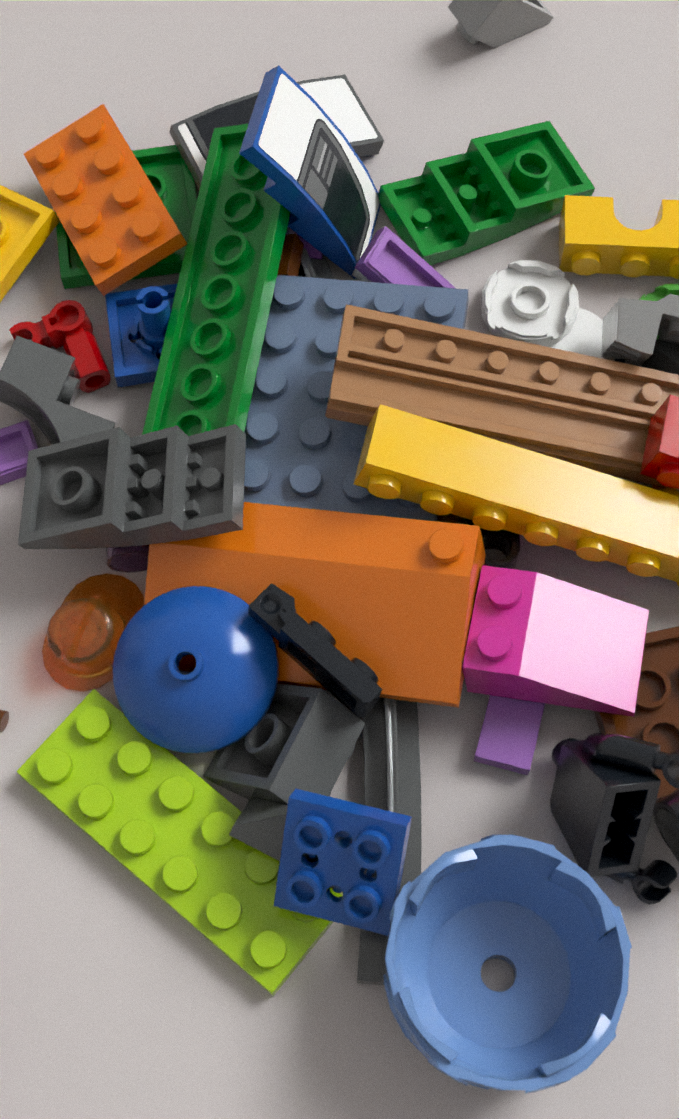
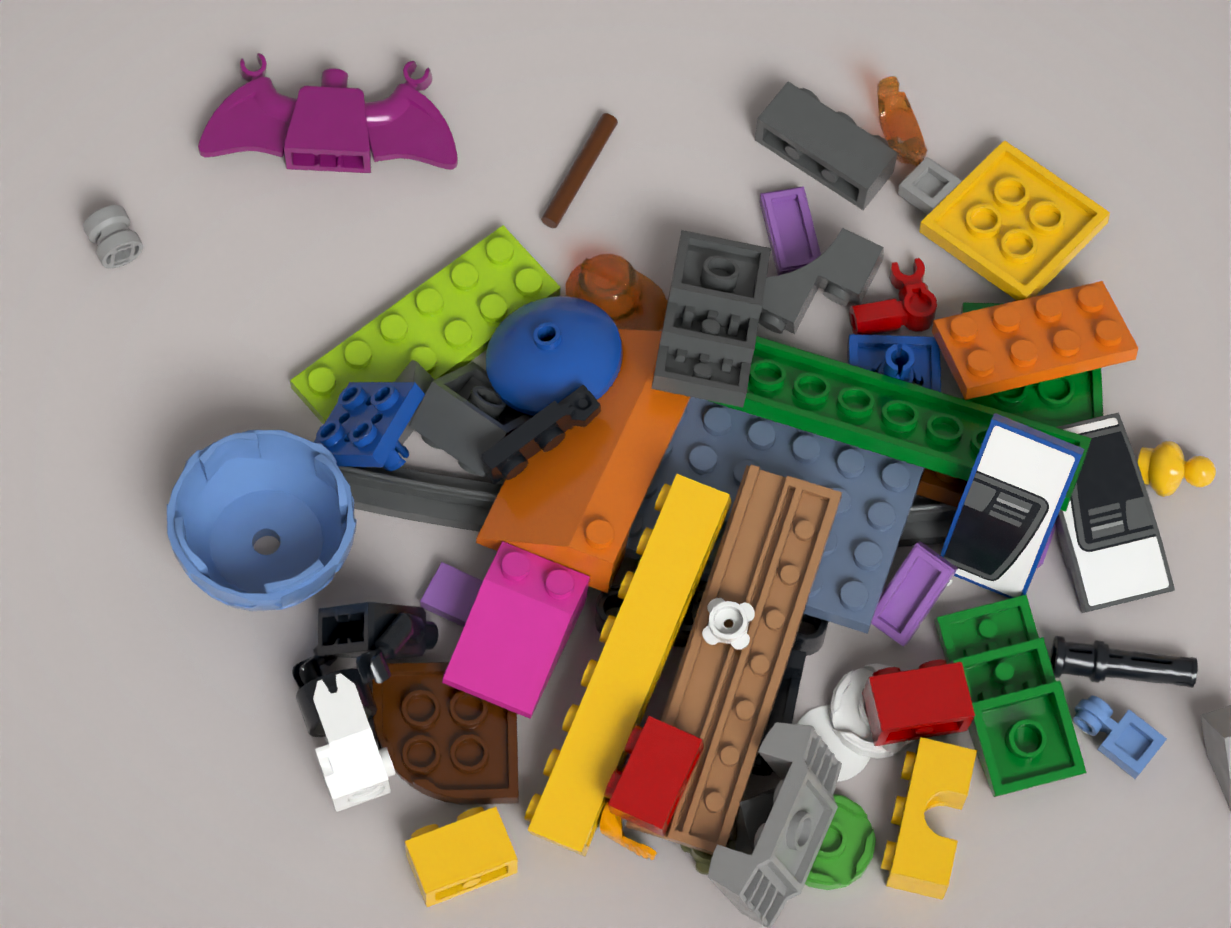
camera: 95 degrees right, 0 degrees up
(217, 82) = (1166, 467): none -> yellow animal
(425, 71) = (1100, 661): none -> black pin
(503, 97) = (1129, 742): none -> medium blue plate
(527, 252) = (917, 702): none -> red brick
(528, 387) = (727, 610): none -> white plate

